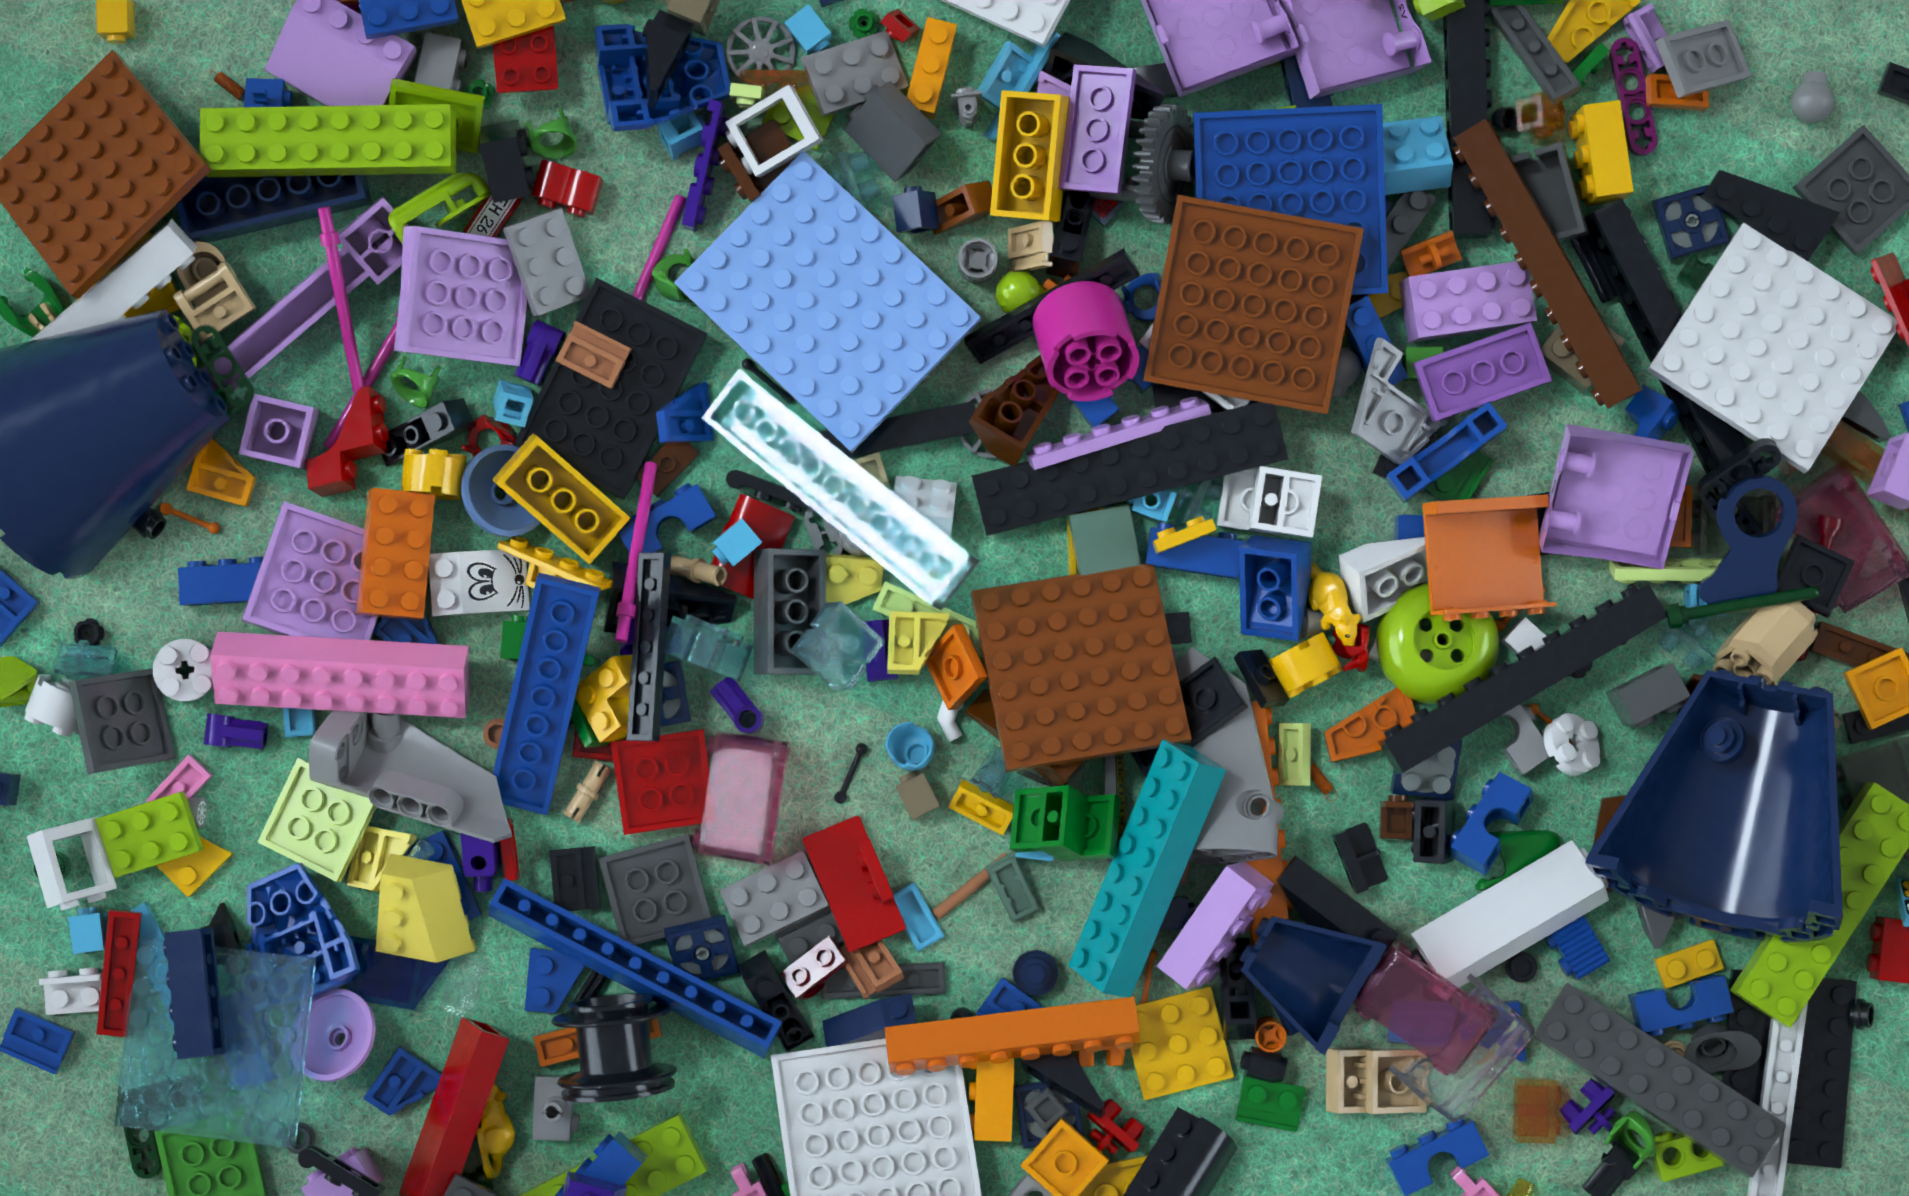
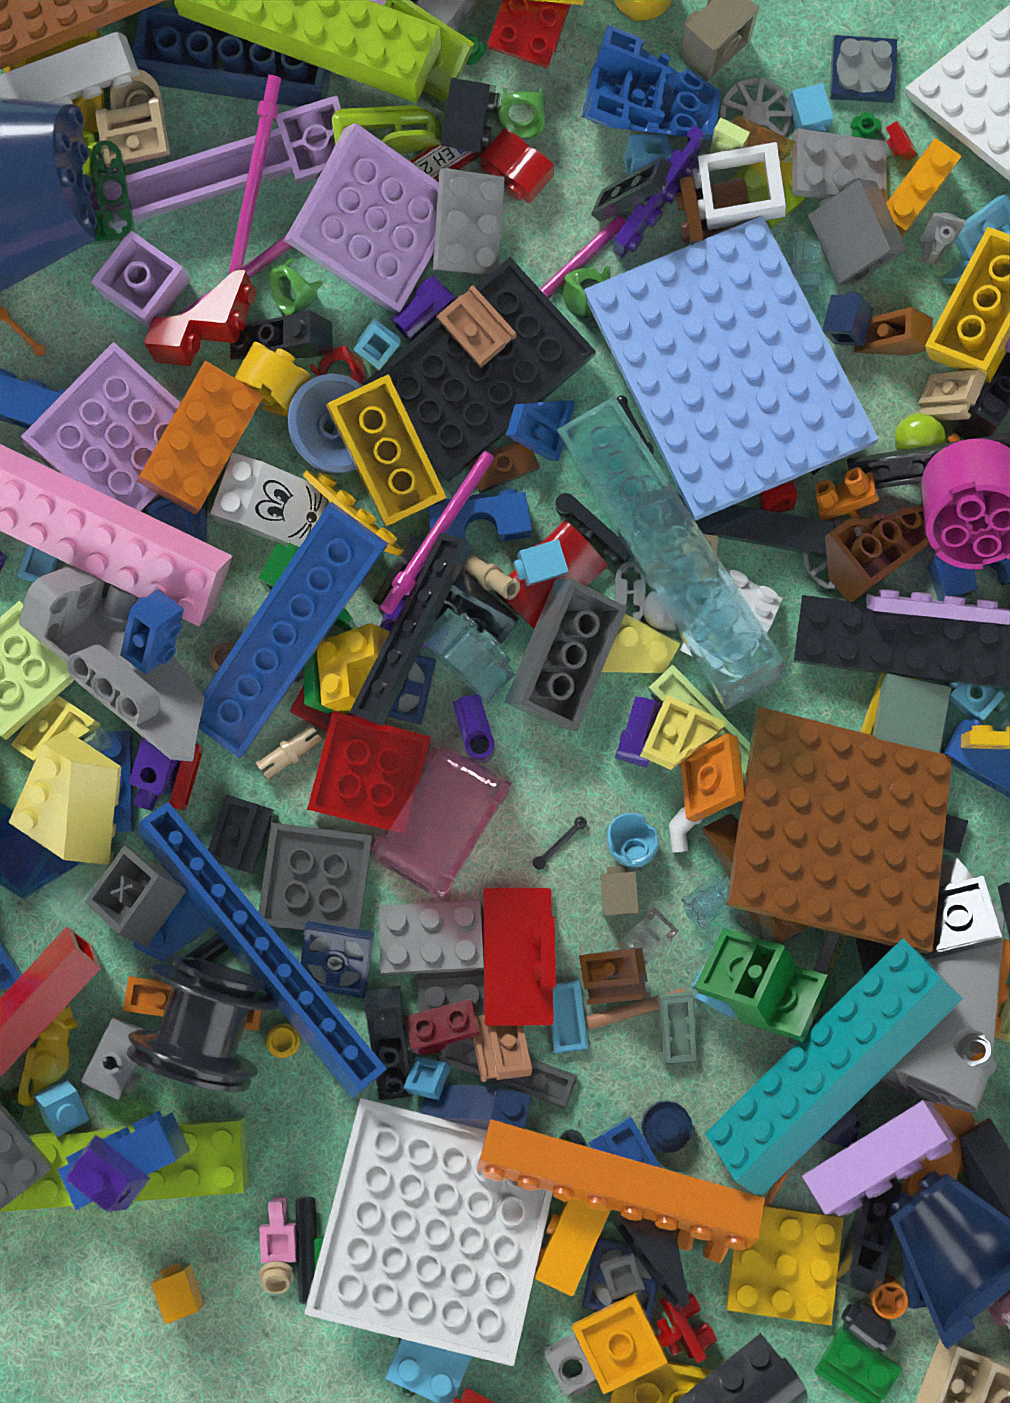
camera: 25 degrees right, 5 degrees down
(220, 476) = (67, 301): light orange wing -> none
(429, 740) = (152, 631): none -> blue brick
(510, 968) = (135, 896): none -> dark grey brick
(524, 1167) = (60, 1107): none -> medium azure brick
(664, 47) = (669, 65): black slope -> none
(678, 176) = (632, 189): none -> black plate
(685, 1035) = (283, 1040): none -> yellow plate
(819, 1015) = (427, 1077): none -> dark azure plate
(835, 642) = (602, 701): clear light blue piece -> none
(919, 398) = (779, 498): none -> red plate
(941, 866) = (614, 975): none -> reddish brown plate
(956, 823) = (651, 934): none -> clear brick
(975, 373) = (846, 497): none -> orange hips
(977, 261) = (890, 389): light grey wheel -> none
(982, 807) = (690, 943): yellow plate -> none

